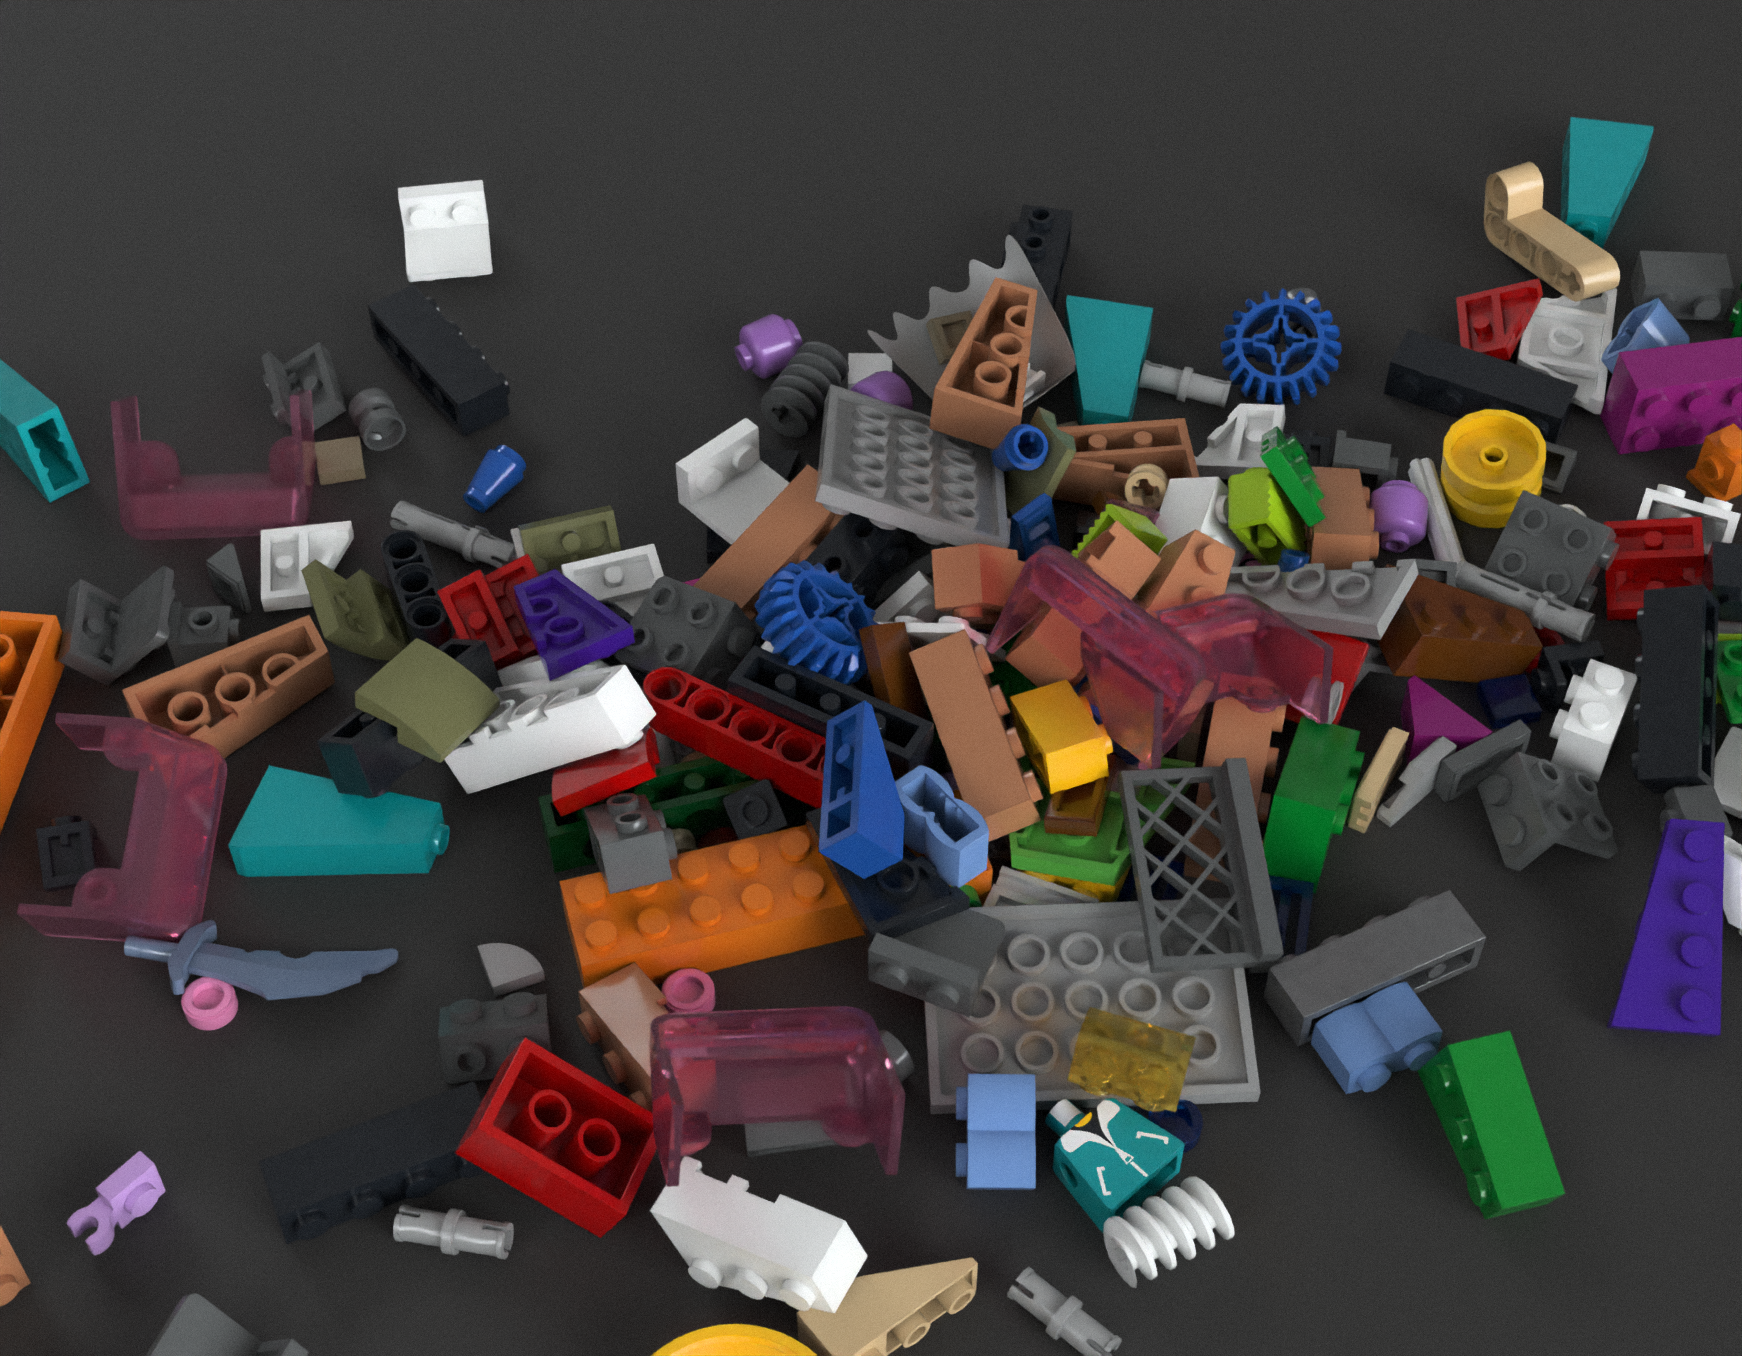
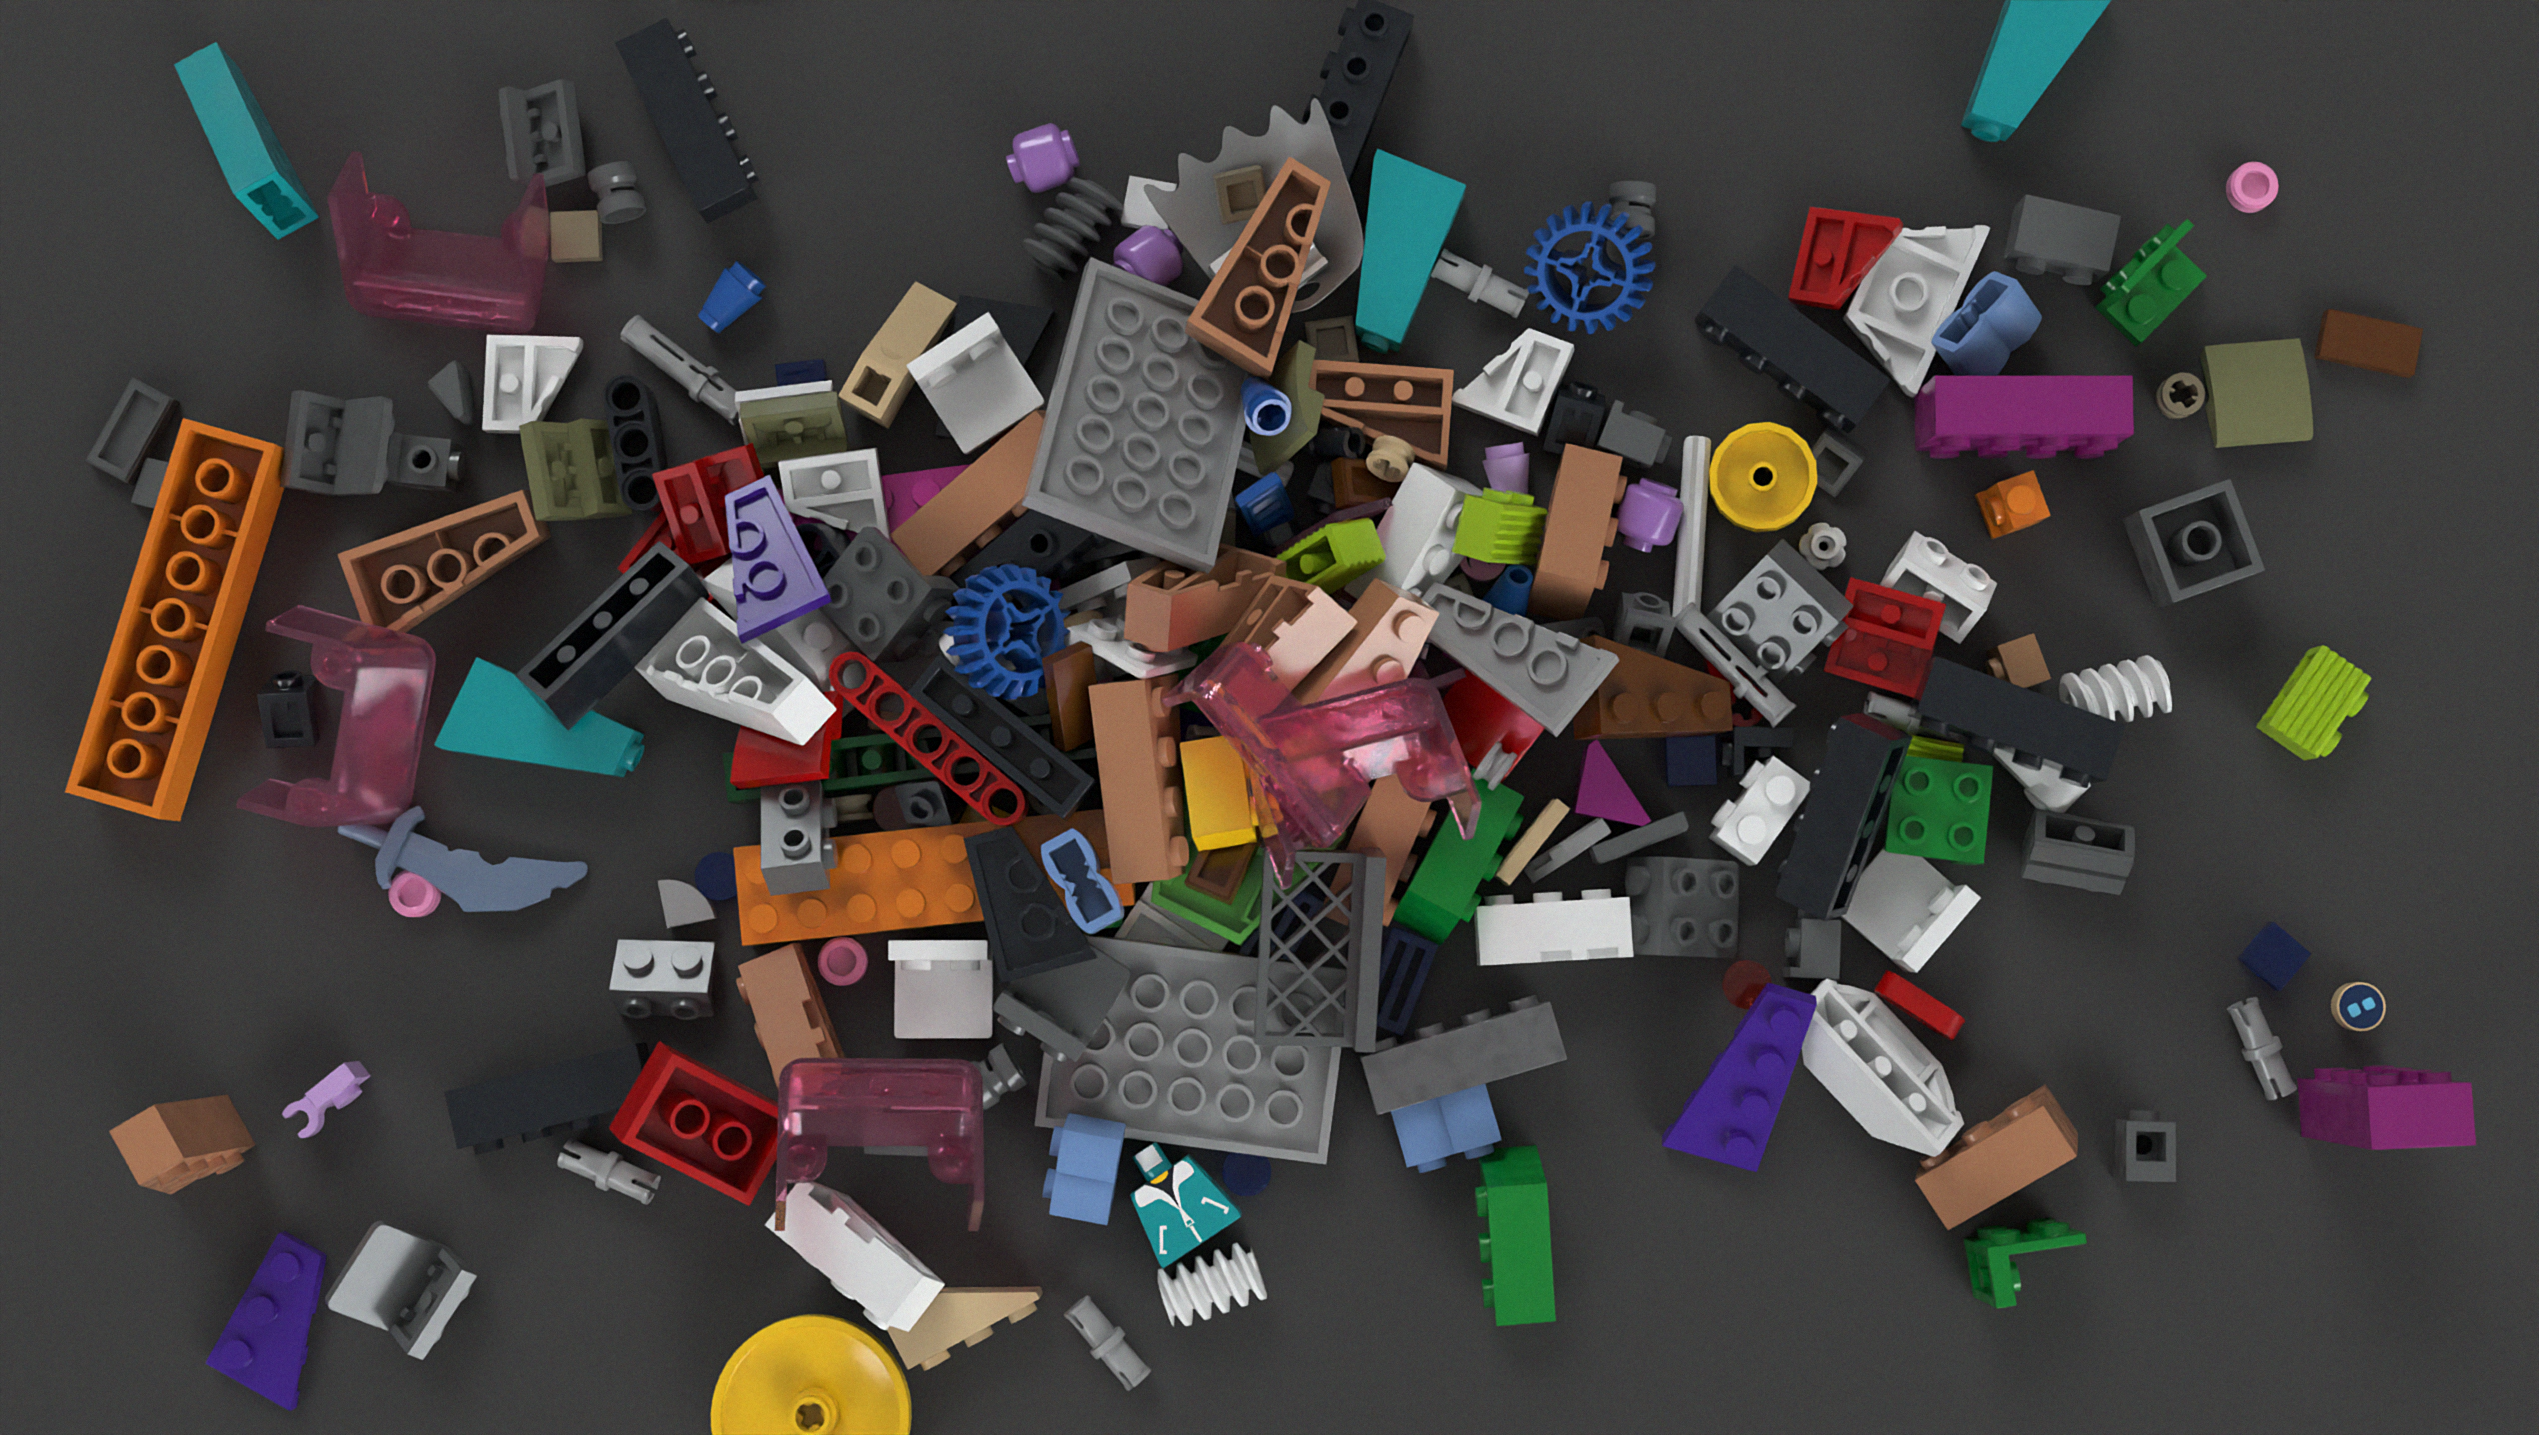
camera: 15 degrees right, 35 degrees up
(427, 699) = (623, 644): olive slope -> none
(545, 936) = (717, 876): none -> clear blue tile
(650, 503) = (881, 375): none -> tan slope
(799, 966) = (942, 988): none -> white bracket
(859, 796) = (1007, 859): blue slope -> none
(1078, 493) = (1335, 441): none -> black axle
(1131, 1060) = (1211, 1137): clear yellow brick -> none
(1293, 473) = (1535, 482): green wing -> none
(1433, 840) = (1553, 928): none -> white wedge
(1540, 240) = (1931, 148): tan beam -> none
(1633, 871) = (1744, 983): none -> clear red plate

